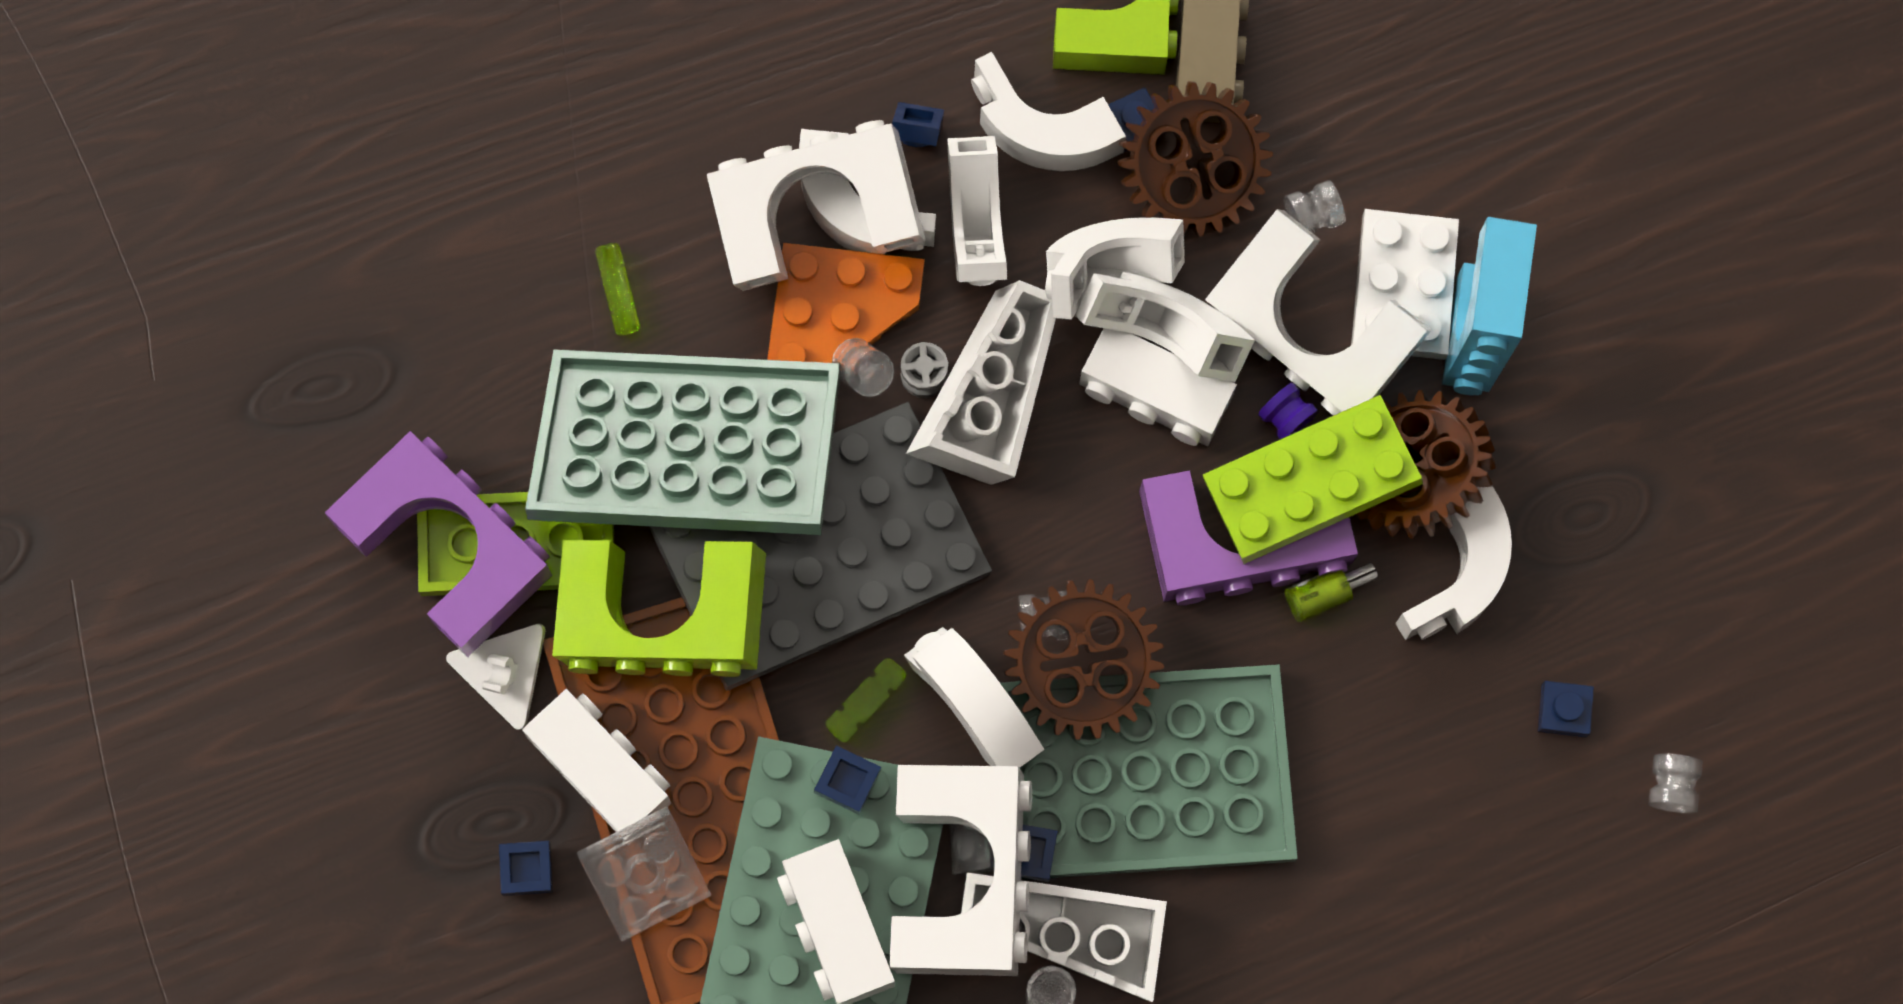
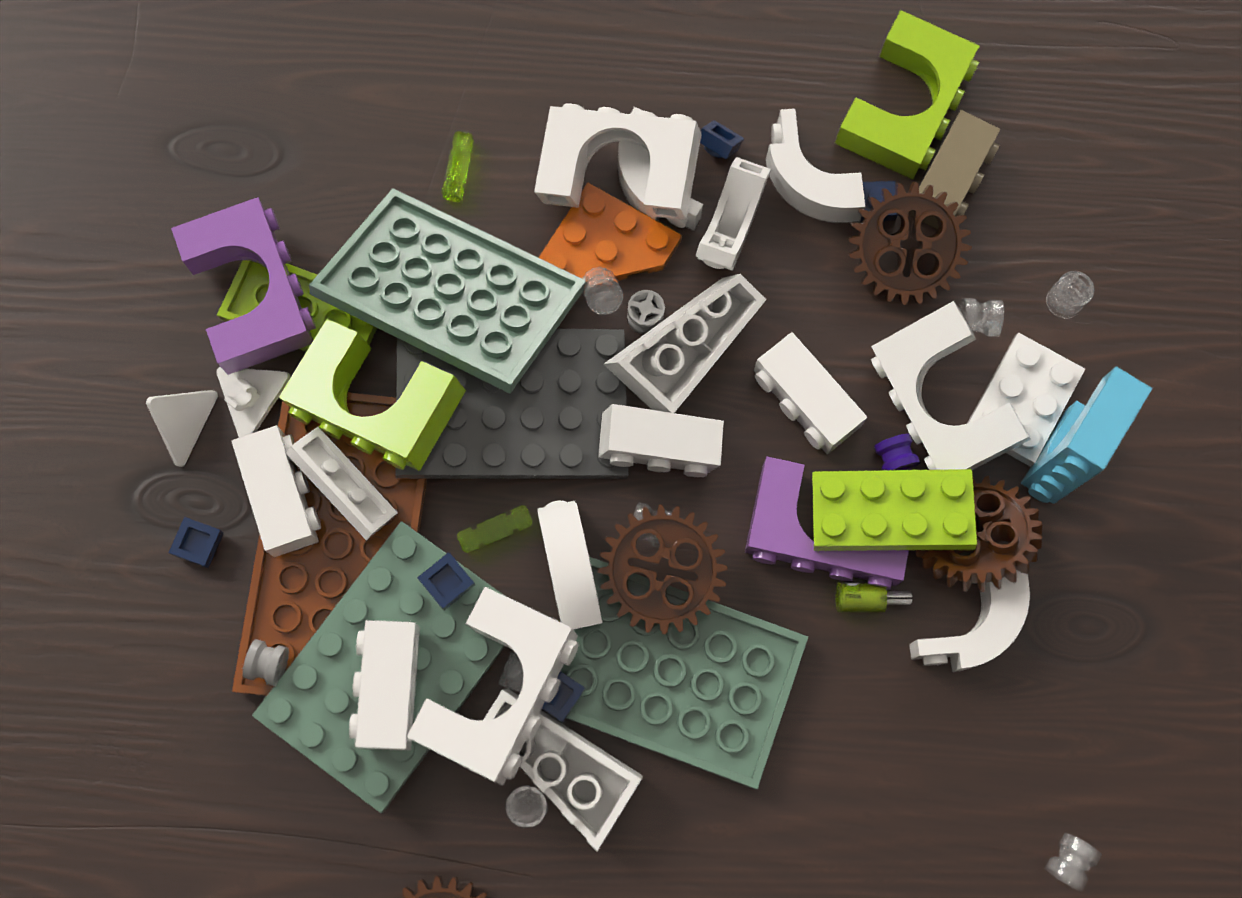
camera: 25 degrees right, 0 degrees up
(438, 735) = (181, 420): none -> white piece
(644, 873) = (268, 584): clear plate -> none
(671, 722) = (341, 483): none -> white plate
(681, 963) = (265, 662): none -> light grey wheel
(1012, 514) = (660, 440): none -> white brick
(1108, 248) = (817, 286): white arch -> none
(1176, 320) = (839, 348): white arch -> none
(1401, 148) = (1064, 301): none -> clear wheel
(1565, 709) = (1011, 765): dark blue plate -> none

